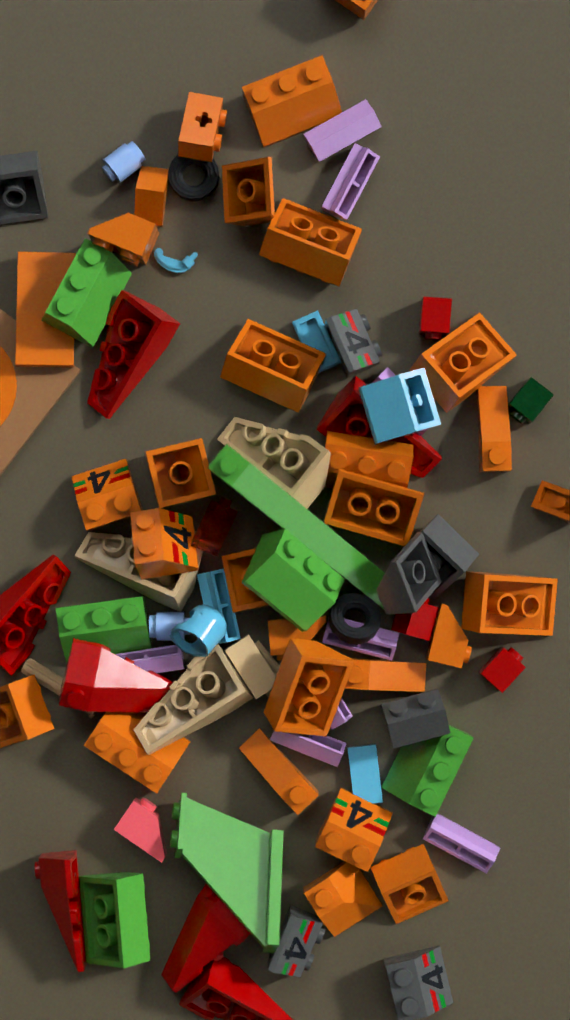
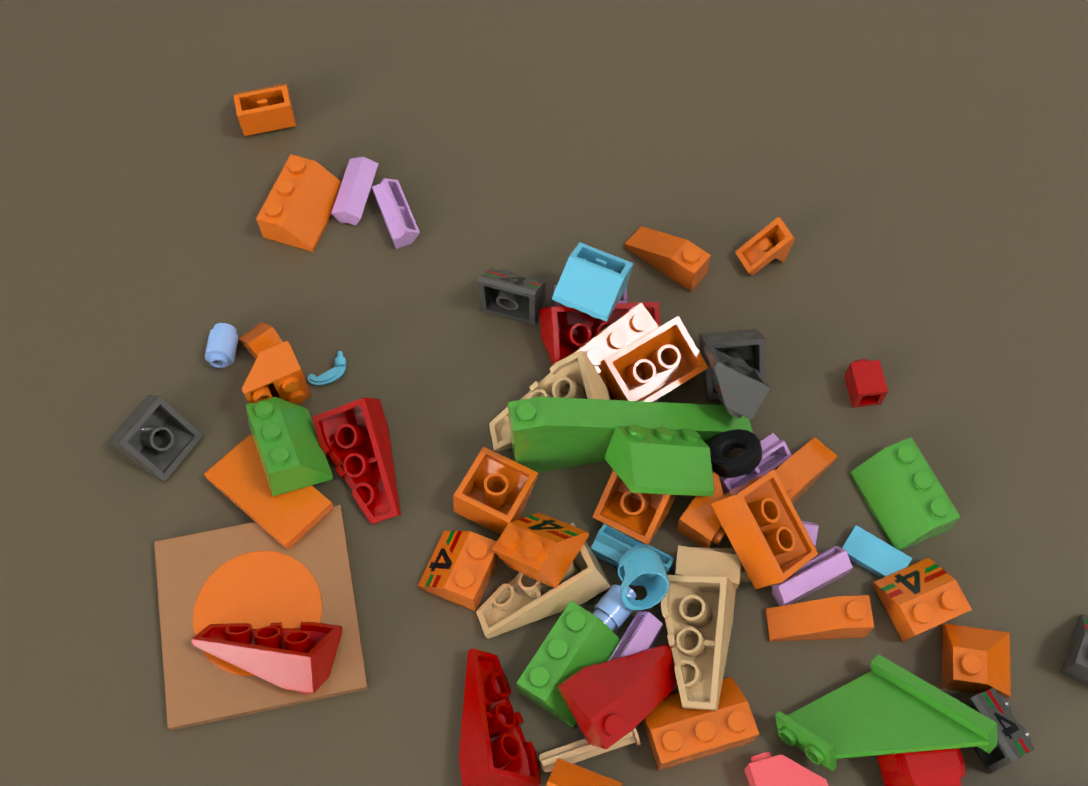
camera: 50 degrees left, 25 degrees down
(189, 192) = (278, 293): black tyre -> none
(201, 127) = (255, 270): orange brick -> none
(214, 527) = (563, 499): clear red hinge -> none
(248, 192) = (335, 269): orange slope -> none
(272, 365) = (477, 362): orange slope -> none
(310, 242) = (412, 269): orange slope -> none
(313, 333) = (488, 323): medium azure tile -> none
(409, 883) = (1005, 590): orange slope -> none
(415, 718) = (858, 465): dark grey slope -> none
(417, 624) = (774, 413): red brick -> none
(435, 317) = (546, 229): red brick -> none
(448, 640) = (807, 402): orange slope -> none
(461, 843) = (995, 522): lavender piece -> none
(464, 361) = (598, 226): orange slope -> none
(509, 604) = (813, 341): orange slope -> none
(529, 401) = (667, 213): dark green brick -> none

